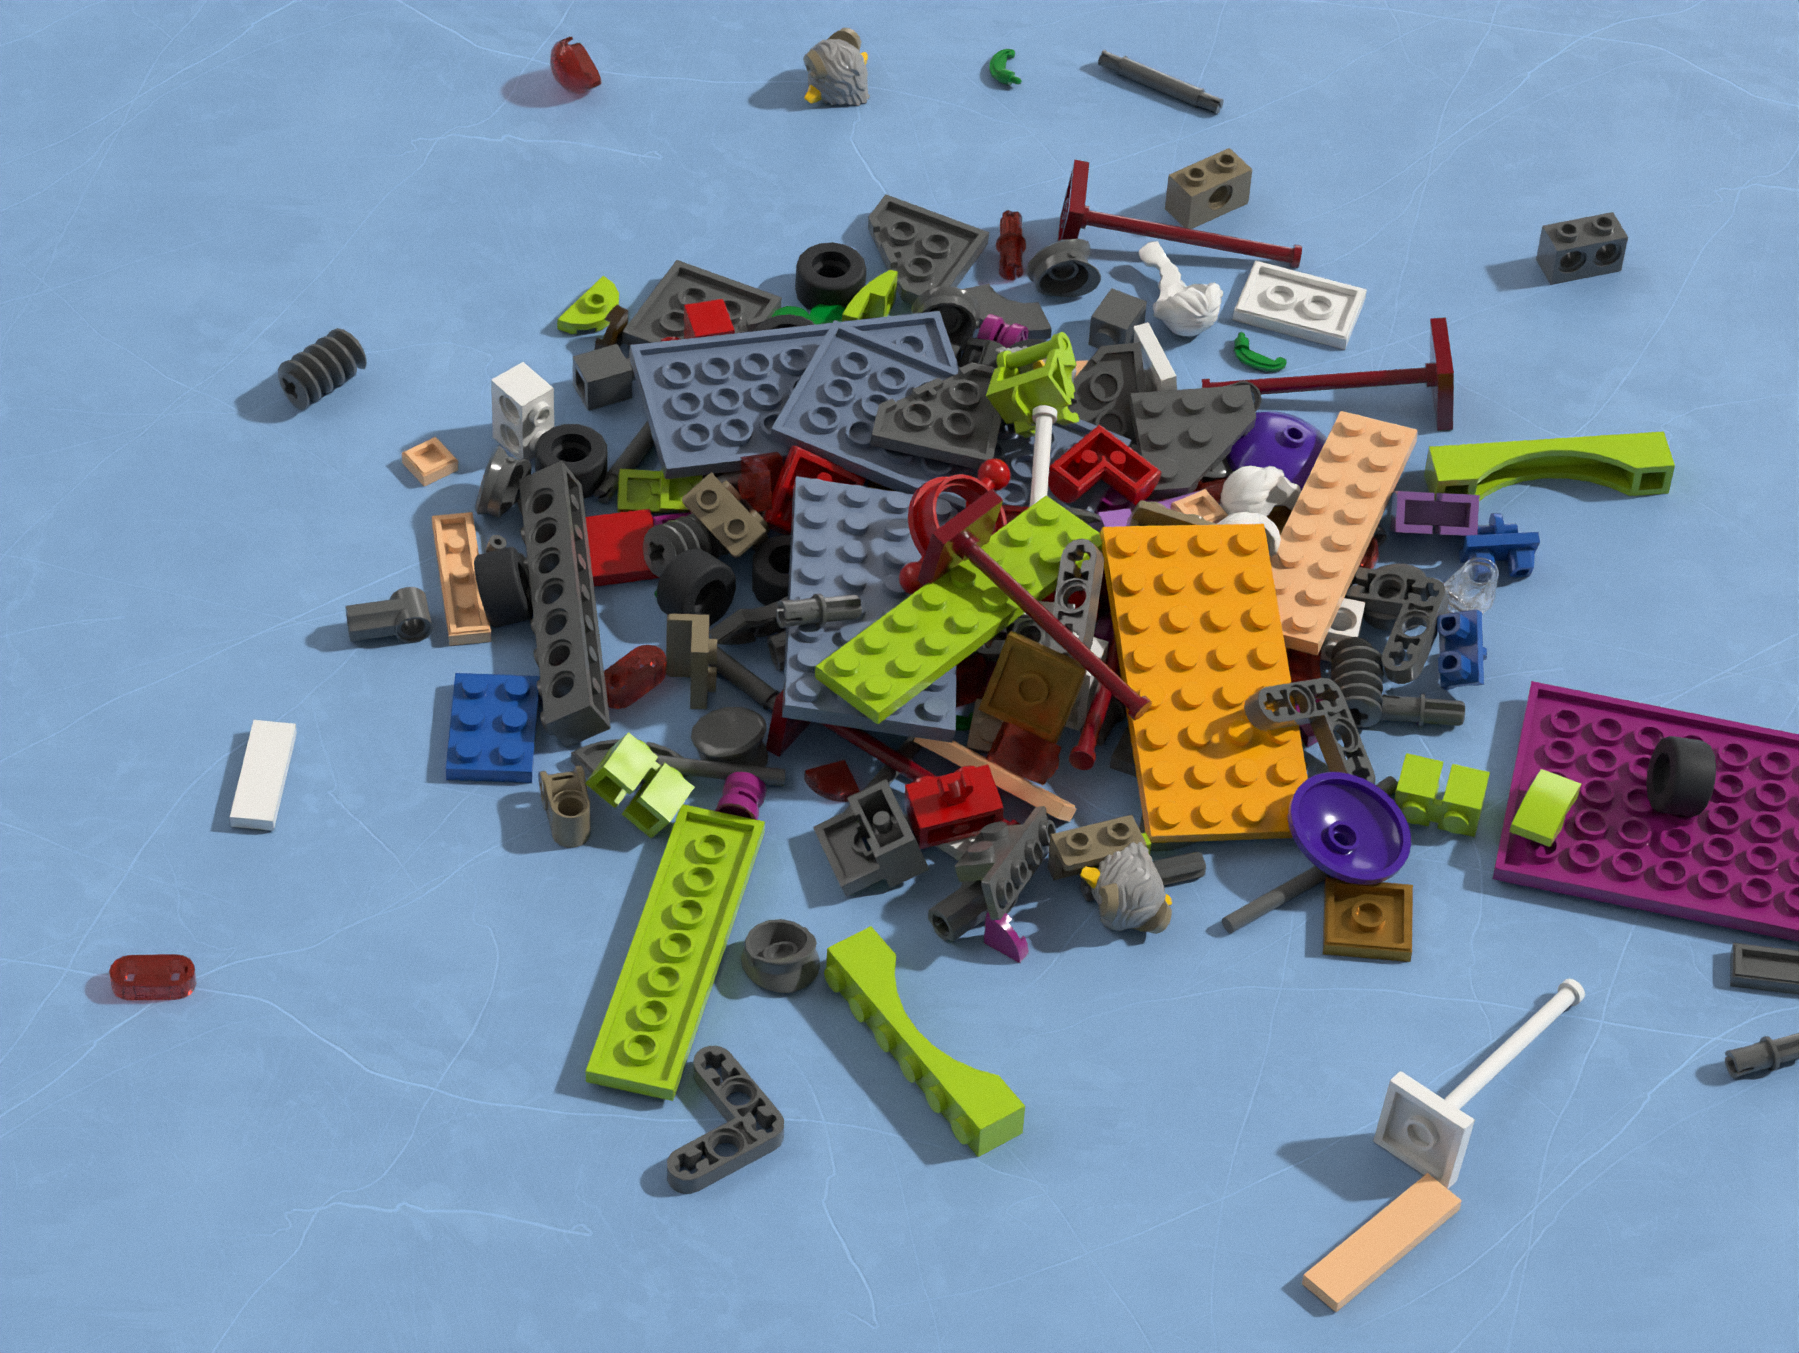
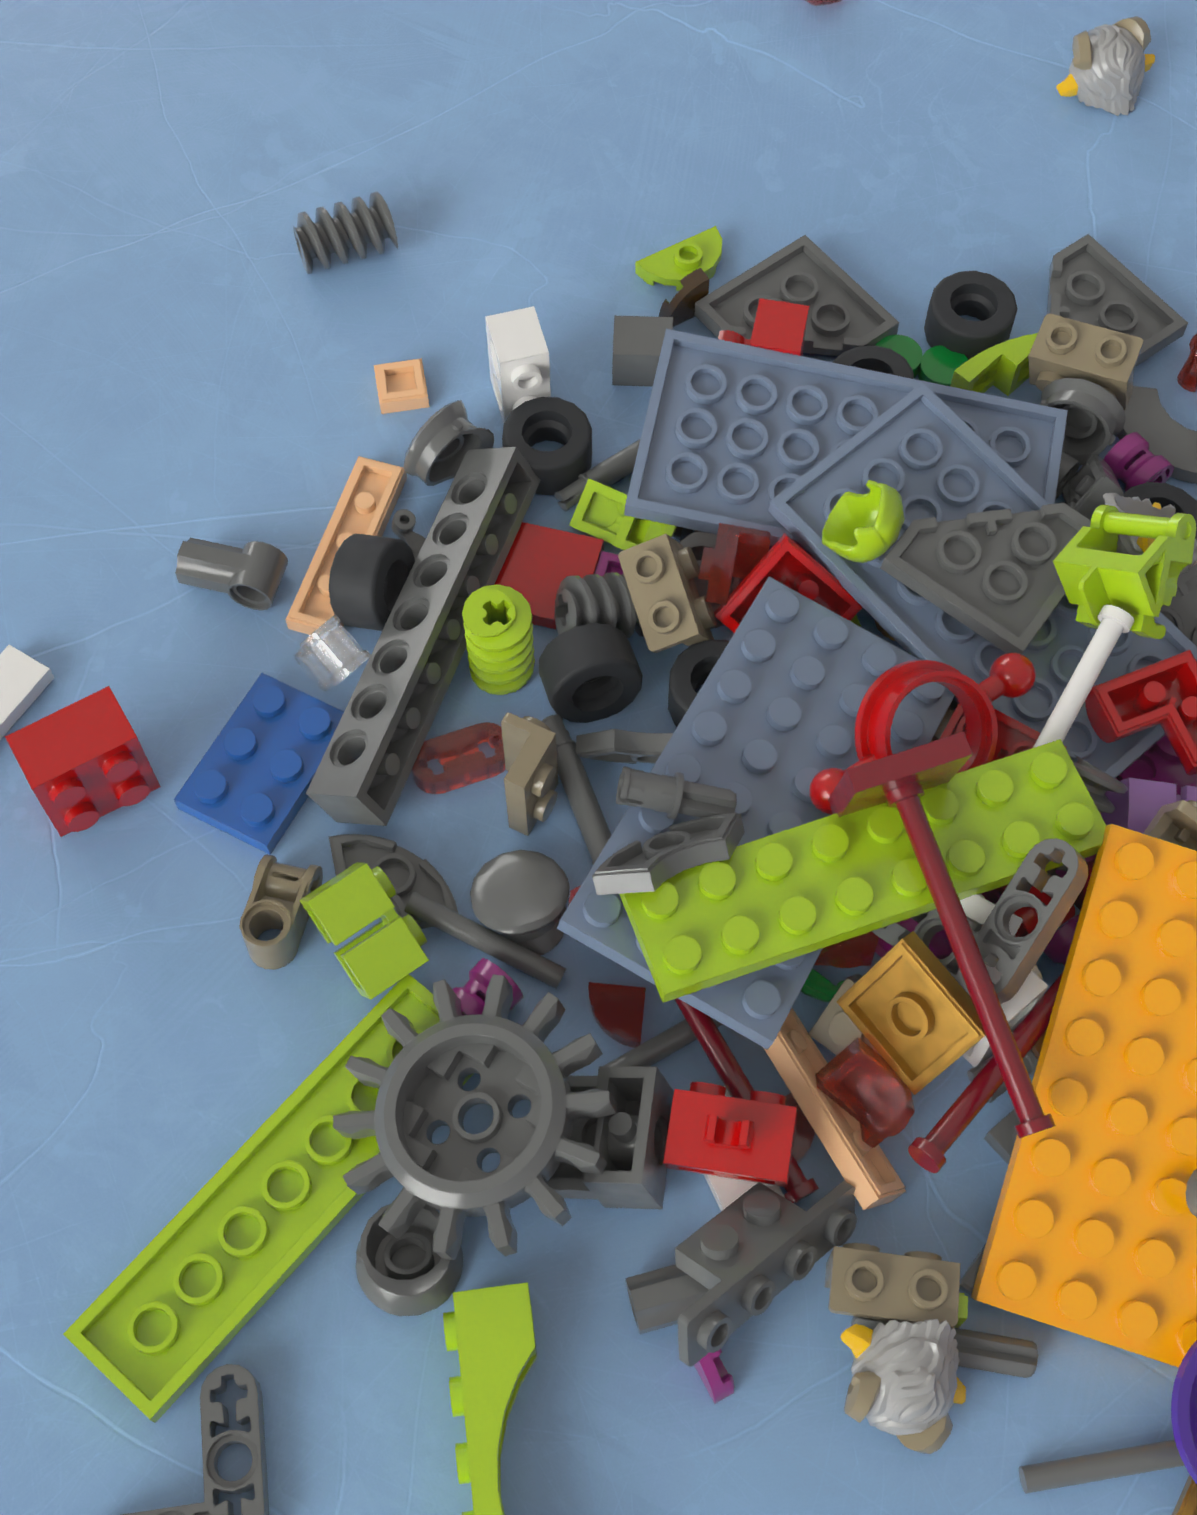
camera: 30 degrees right, 15 degrees up
(376, 759) = (83, 762): none -> red brick
(506, 640) = (330, 654): none -> clear piece
(622, 588) = (499, 639): none -> lime piece
(787, 816) = (427, 1092): none -> dark grey gear
(836, 638) = (669, 853): none -> dark grey tile
(848, 418) = (864, 524): none -> lime hair
(929, 268) = (1084, 352): none -> dark tan bracket

